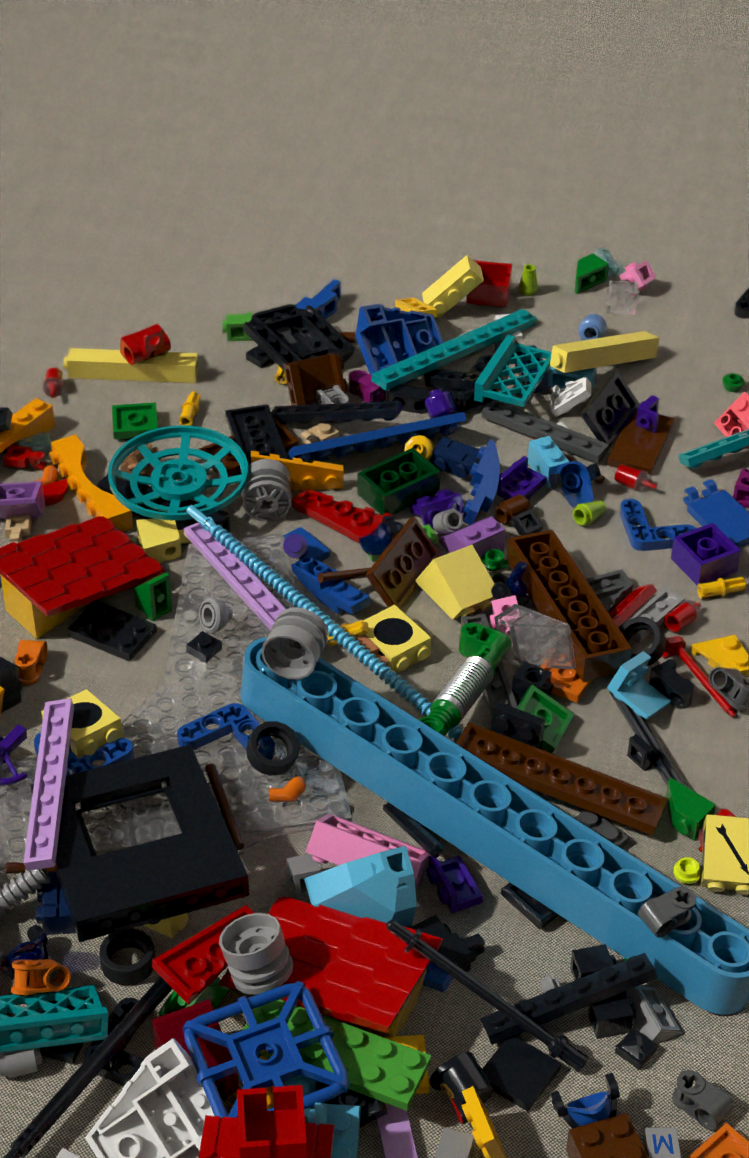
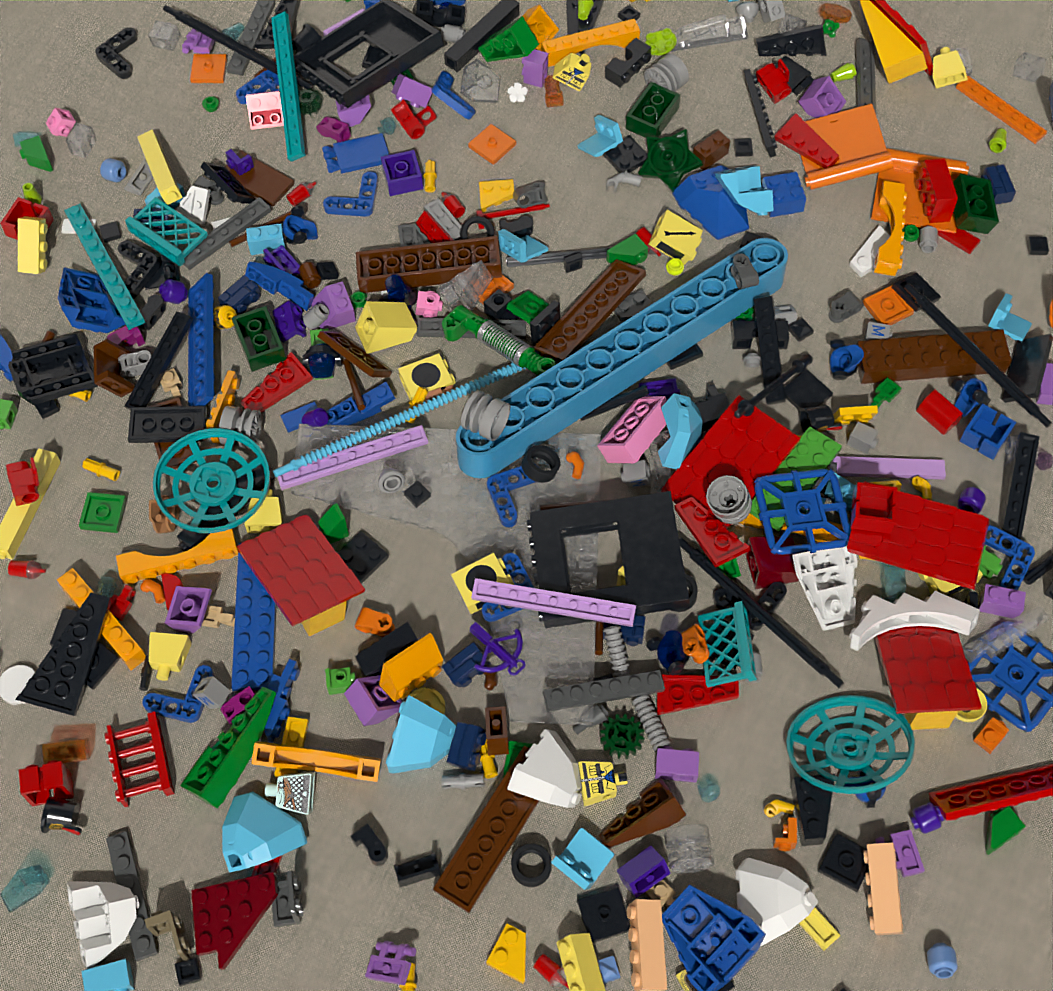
camera: 75 degrees left, 20 degrees up
(414, 304) = (39, 280): yellow plate -> none
(588, 512) = (329, 231): lime cone -> none

